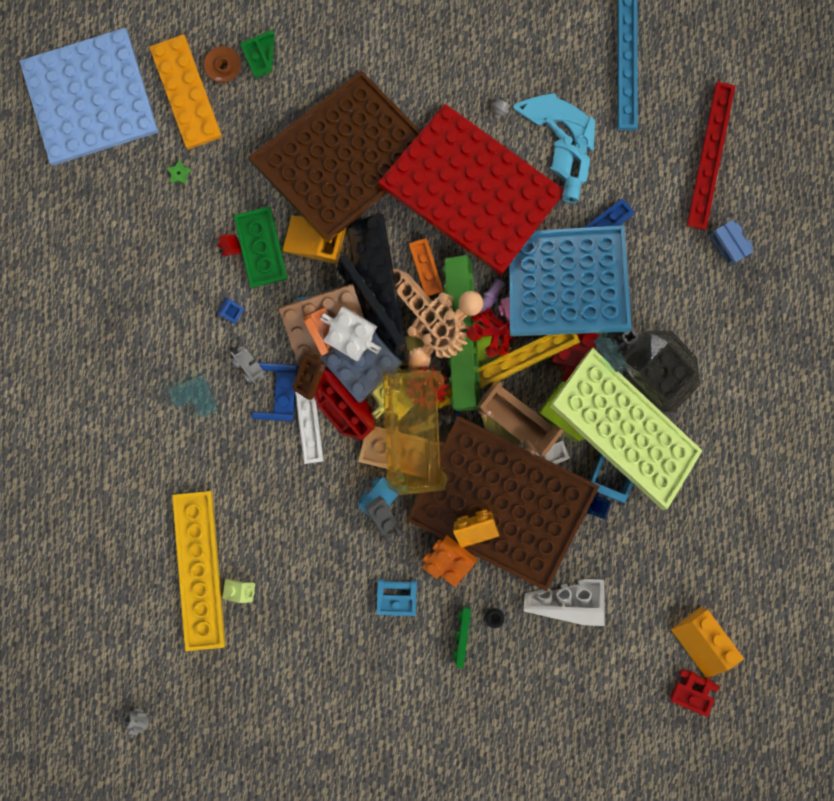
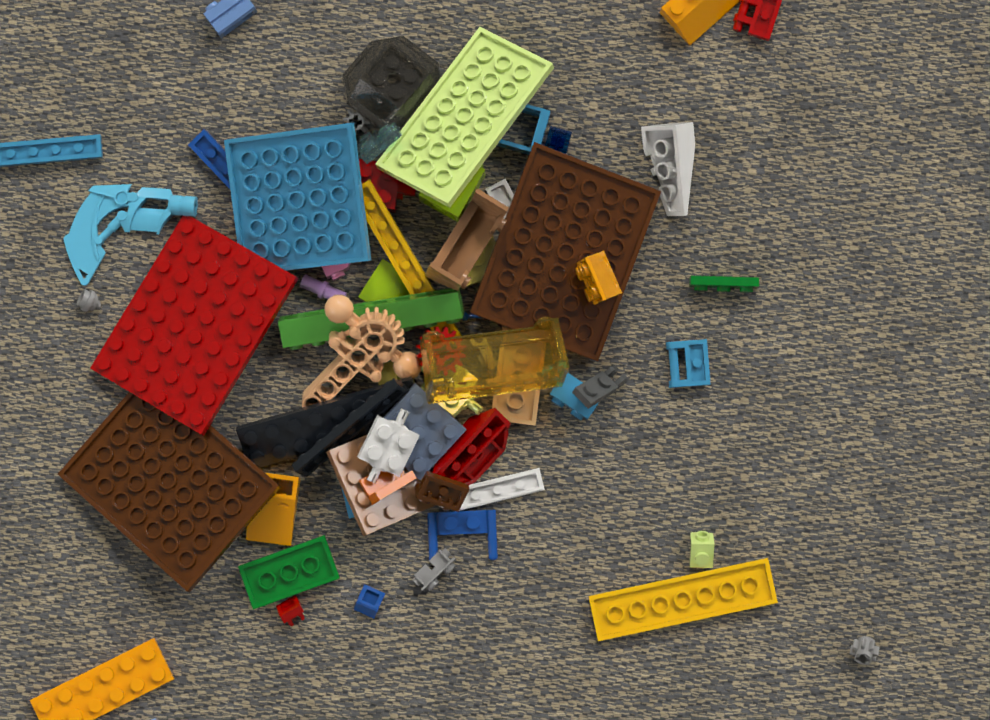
camera: 100 degrees left, 0 degrees up
(178, 168) = (211, 688): bright green plate -> none
(196, 391) = (471, 628): clear light blue plate -> none
(222, 56) = (53, 649): dark orange dish -> none
(260, 53) = (46, 602): green wing -> none
(426, 267) = (294, 370): orange plate -> none
(448, 561) = (639, 306): orange plate -> none
(476, 332) = (372, 298): red plant -> none
(494, 624) = (706, 248): black plate -> none
(710, 156) = (125, 44): red plate -> none

